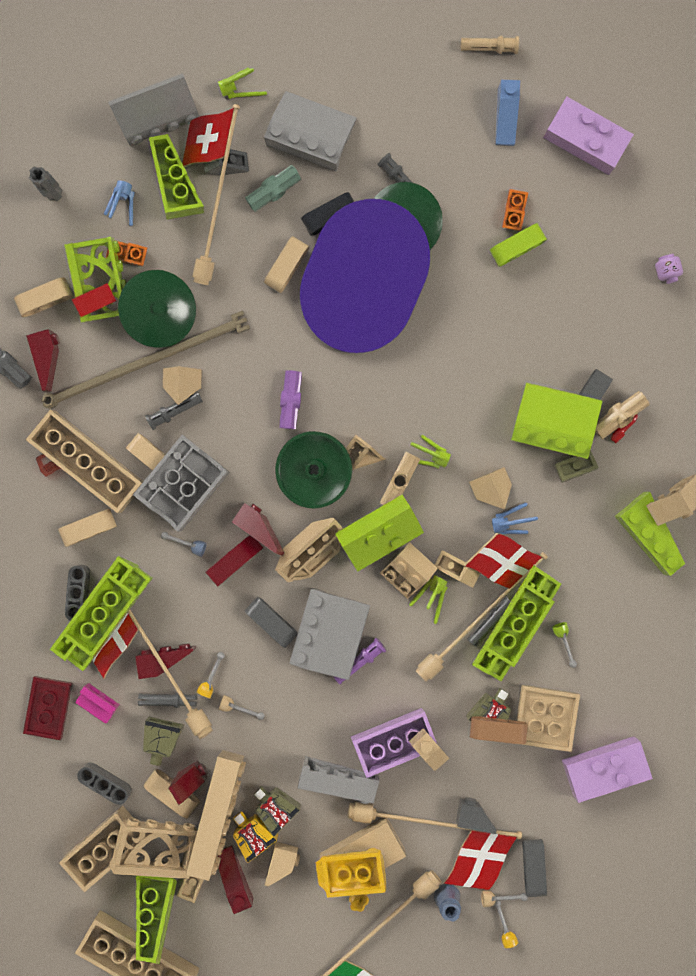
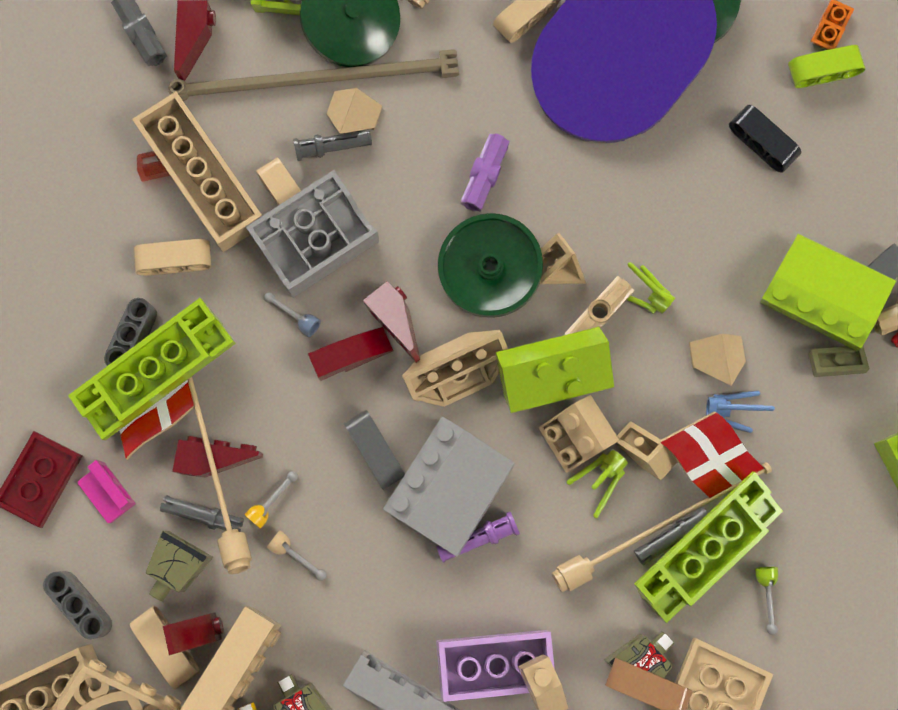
camera: 10 degrees right, 10 degrees down
(486, 314) = (765, 138): none -> black beam

